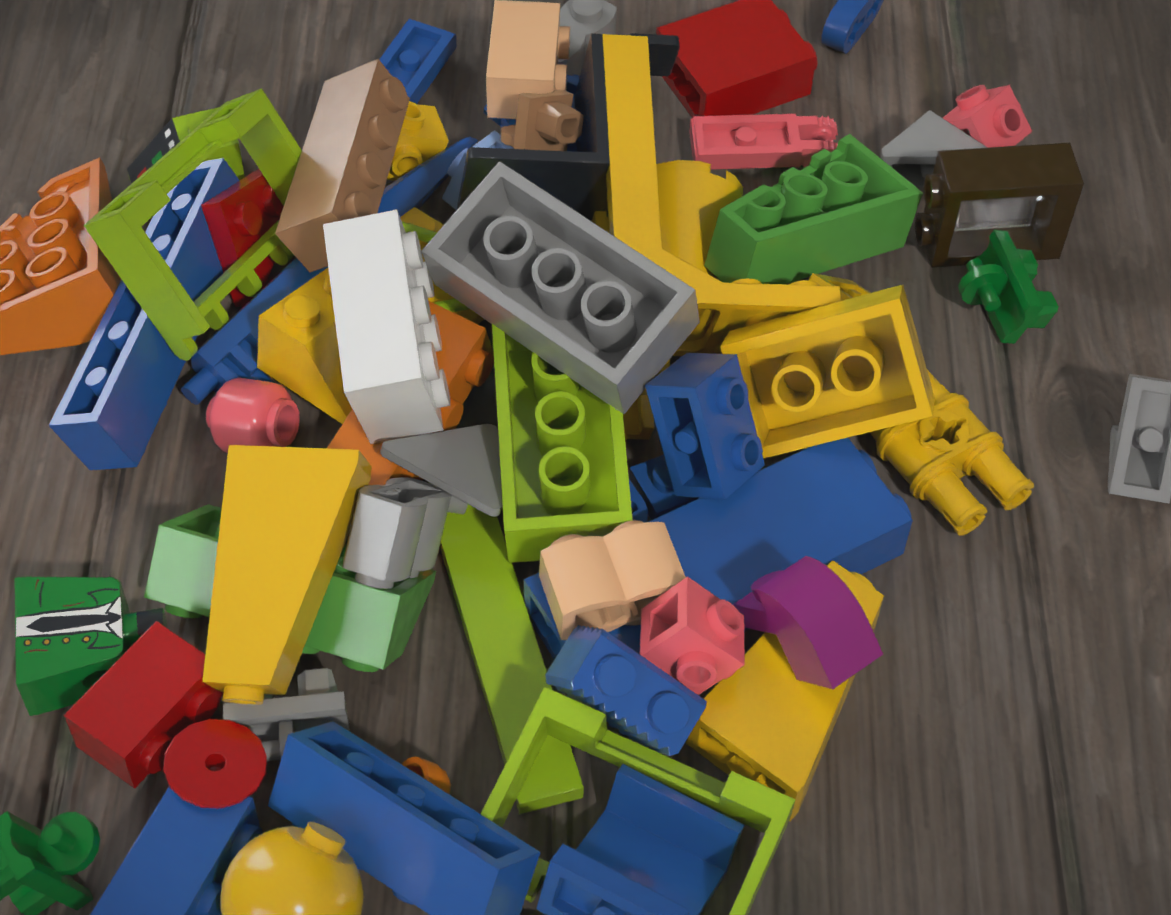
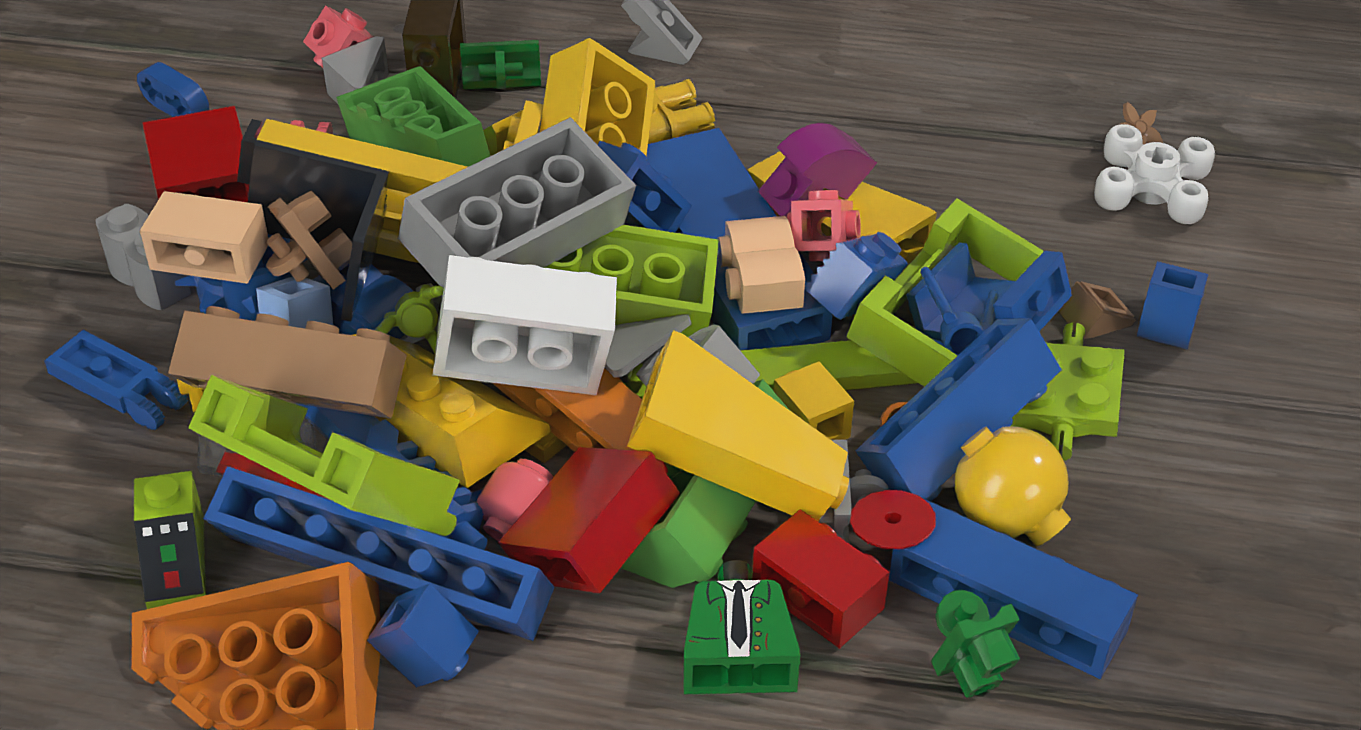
camera: 80 degrees left, 10 degrees down
(48, 362) = (424, 636): none -> blue brick
(175, 463) = (591, 516): none -> red brick
(428, 682) = (817, 400): none -> yellow brick
(546, 823) = (958, 327): none -> blue plant

